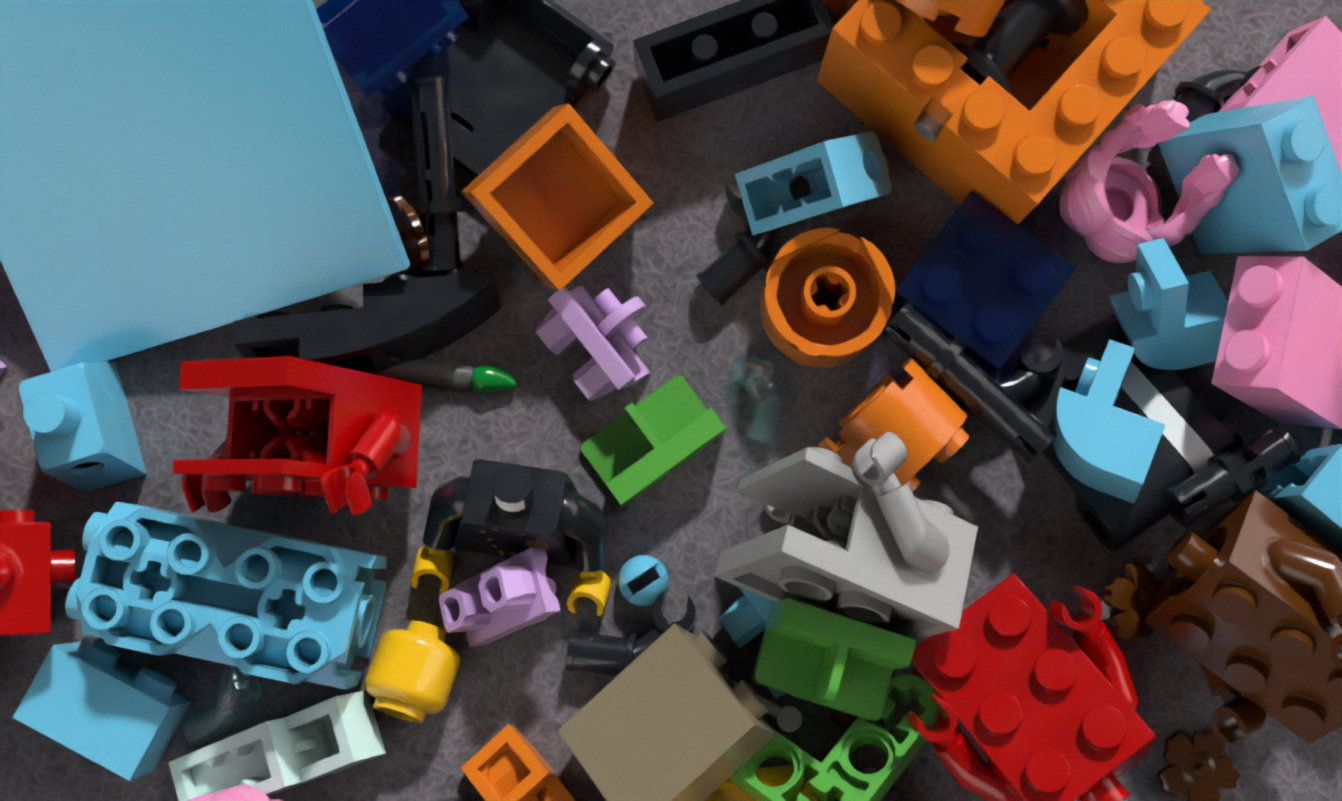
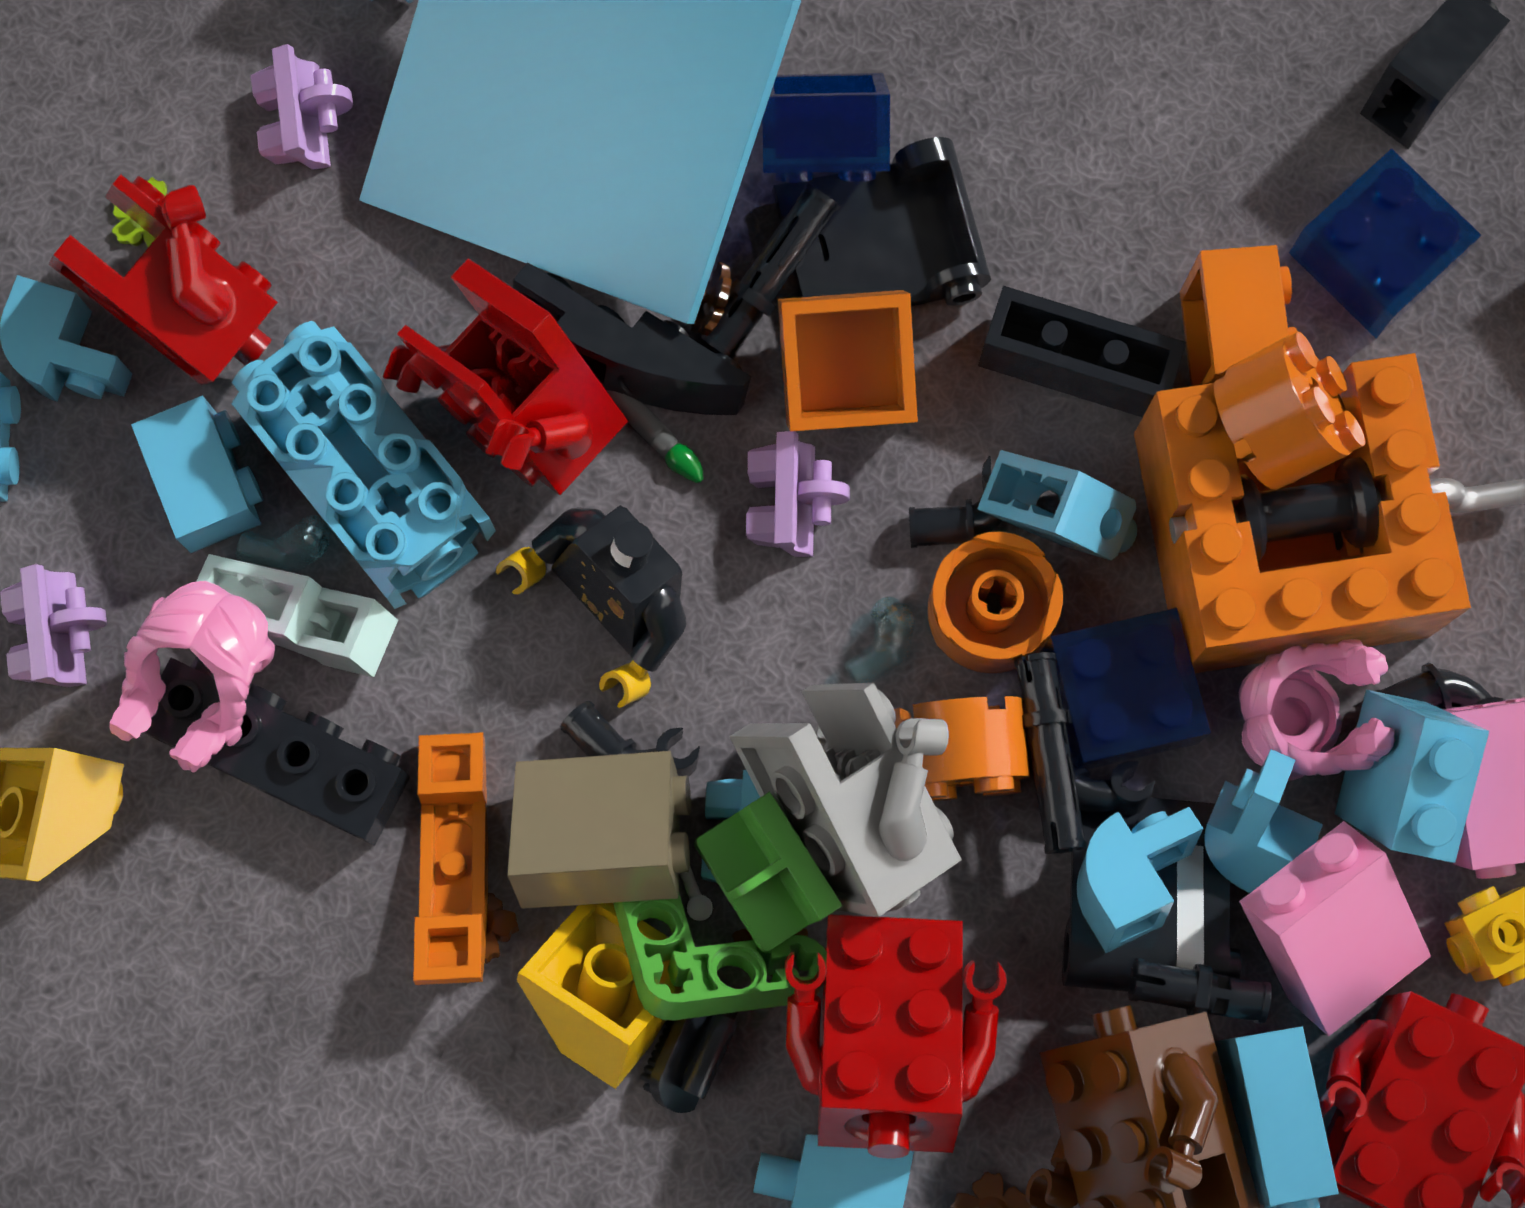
camera: 40 degrees right, 5 degrees down
(82, 419) = (357, 247): medium azure torso -> none
(412, 672) = (443, 633): yellow head -> none
(501, 599) = (555, 630): lavender hips -> none
(636, 568) = (671, 719): medium azure hinge -> none
(652, 439) = (770, 607): bright green panel -> none
(1133, 601) = (1046, 1032): reddish brown plant -> none

